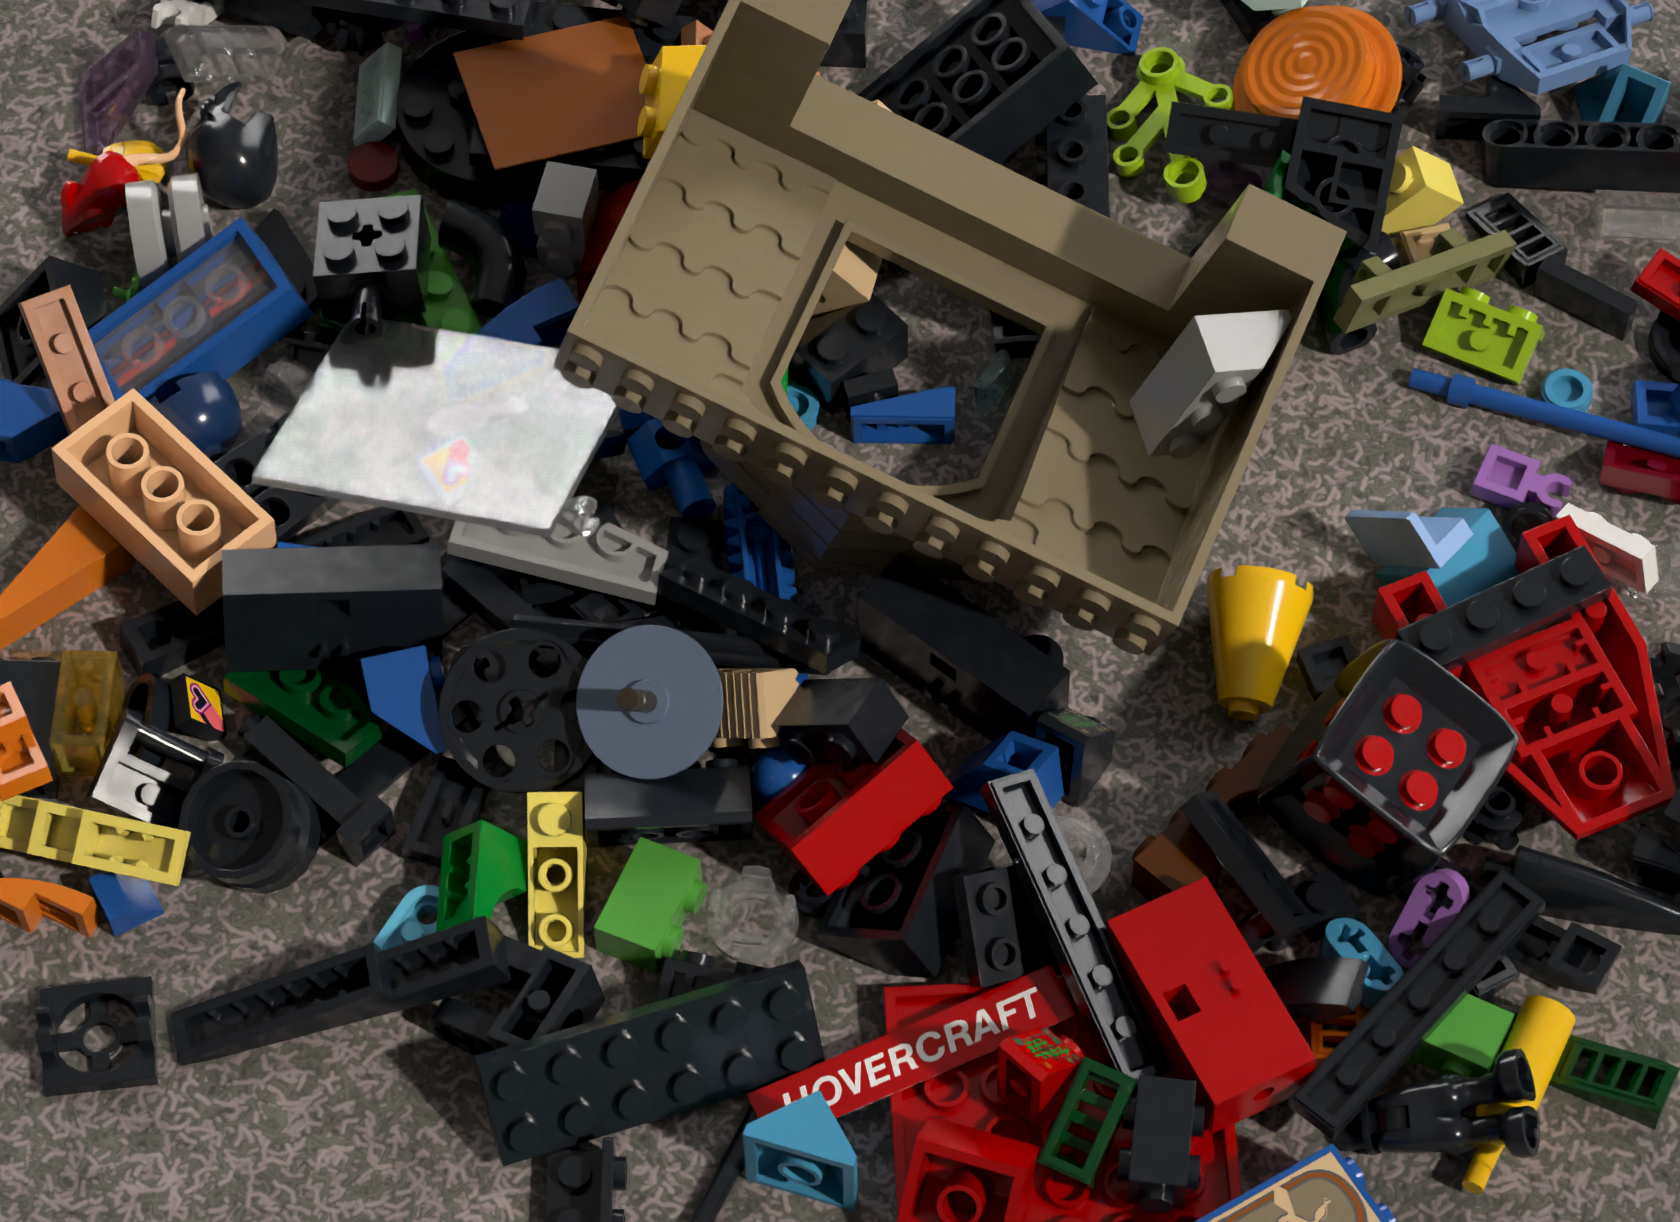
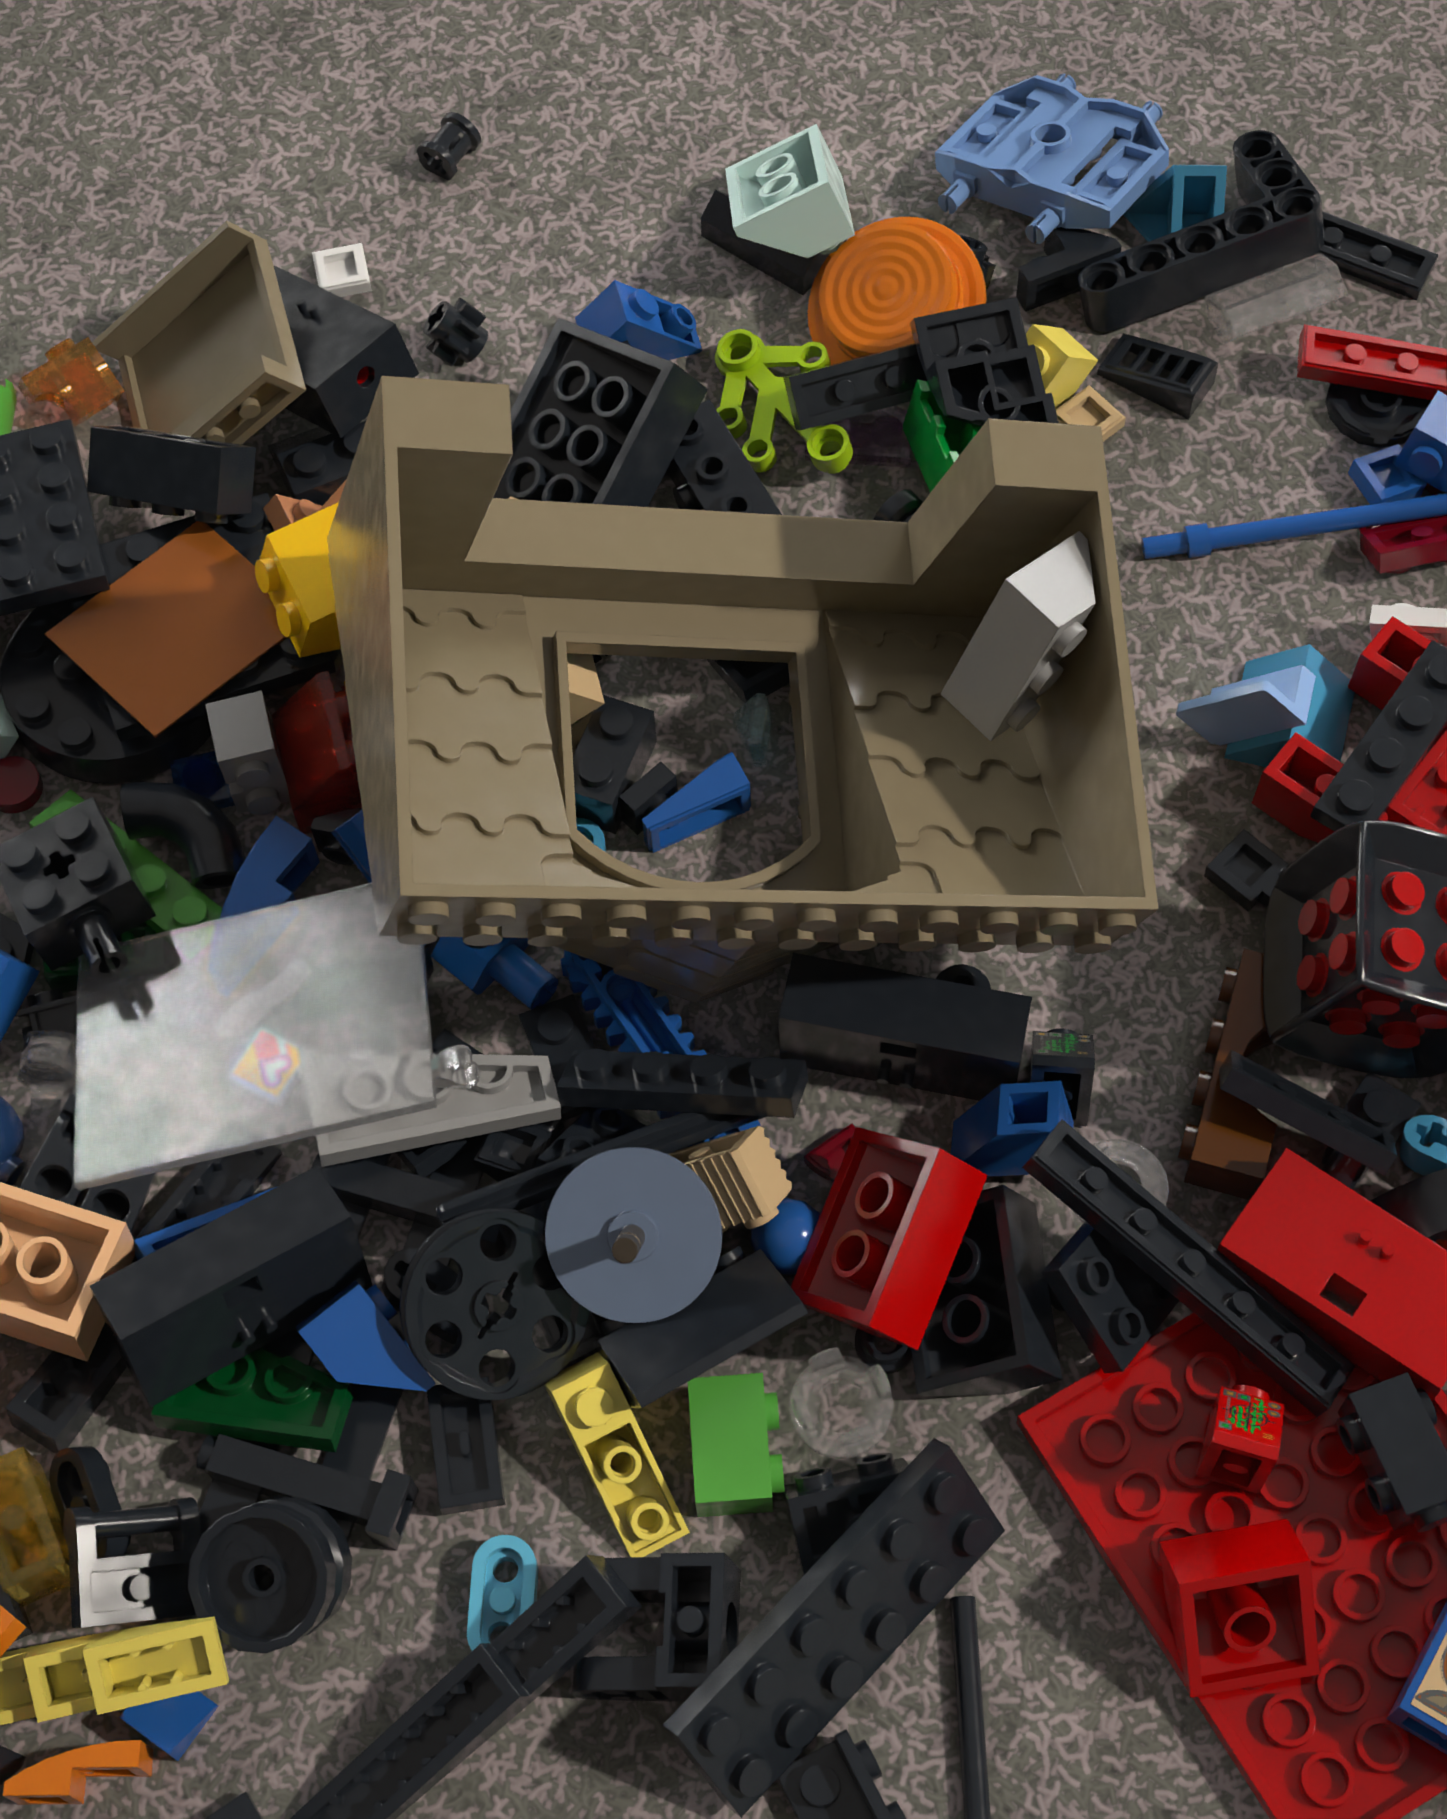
camera: 25 degrees left, 5 degrees up
(197, 708) = (137, 1459): black tile -> none
(479, 871) = (541, 1505): green arch -> none
(803, 1153) = (1057, 1643): dark azure slope -> none
(839, 721) = (838, 1161): black brick -> none
(924, 1047) = (1086, 1479): red sticker -> none
(1068, 1114) = (1345, 1518): dark green slope -> none
(1254, 634) = (1182, 880): yellow cone -> none
(1453, 264) = (1129, 418): olive hinge -> none
(1484, 335) = (1189, 477): lime bracket -> none
(1513, 478) = (1298, 607): medium lavender plate -> none
(1524, 518) = (1341, 642): black plate -> none
(1567, 389) = (1290, 497): dark azure tile -> none
(1585, 298) = (1258, 402): black tile -> none

